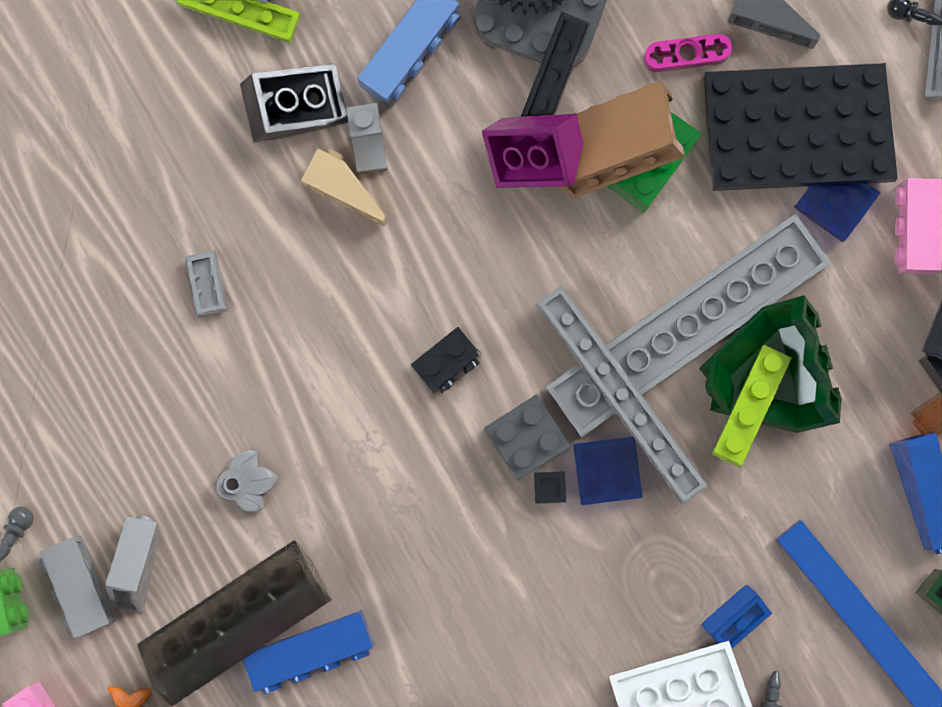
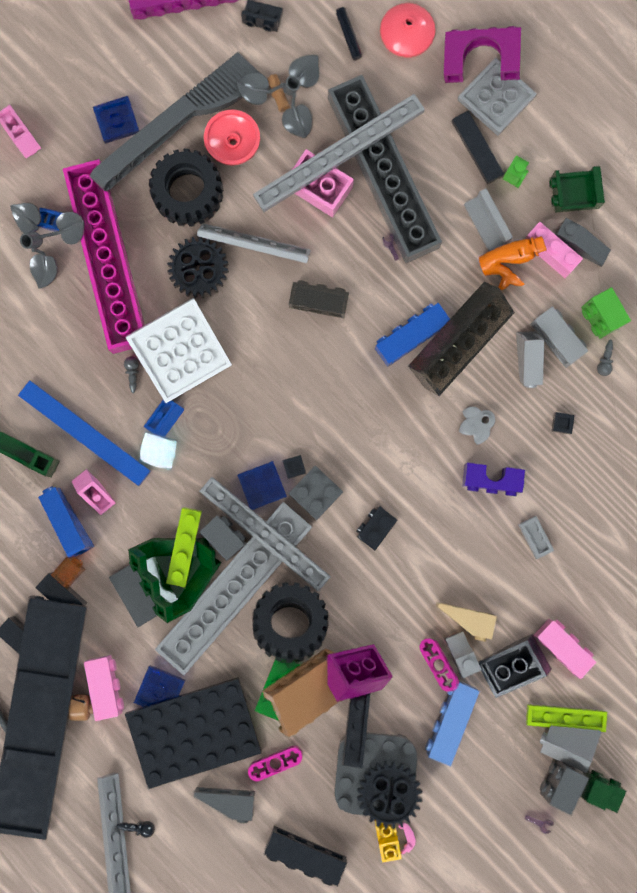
camera: 165 degrees right, 0 degrees up
(112, 448) = (562, 423): none -> black plate
(210, 109) = (565, 648): none -> bright pink brick
(220, 378) = (510, 482): none -> dark purple arch
(395, 125) = (441, 680): none -> dark pink beam
(609, 289) = (297, 598): none -> black tyre
(686, 405) = (224, 537): none -> dark grey brick
(757, 567) = (158, 451): none -> clear light blue piece
(847, 353) = (128, 588): none -> dark grey tile
(874, 528) = (93, 492): none -> bright pink slope

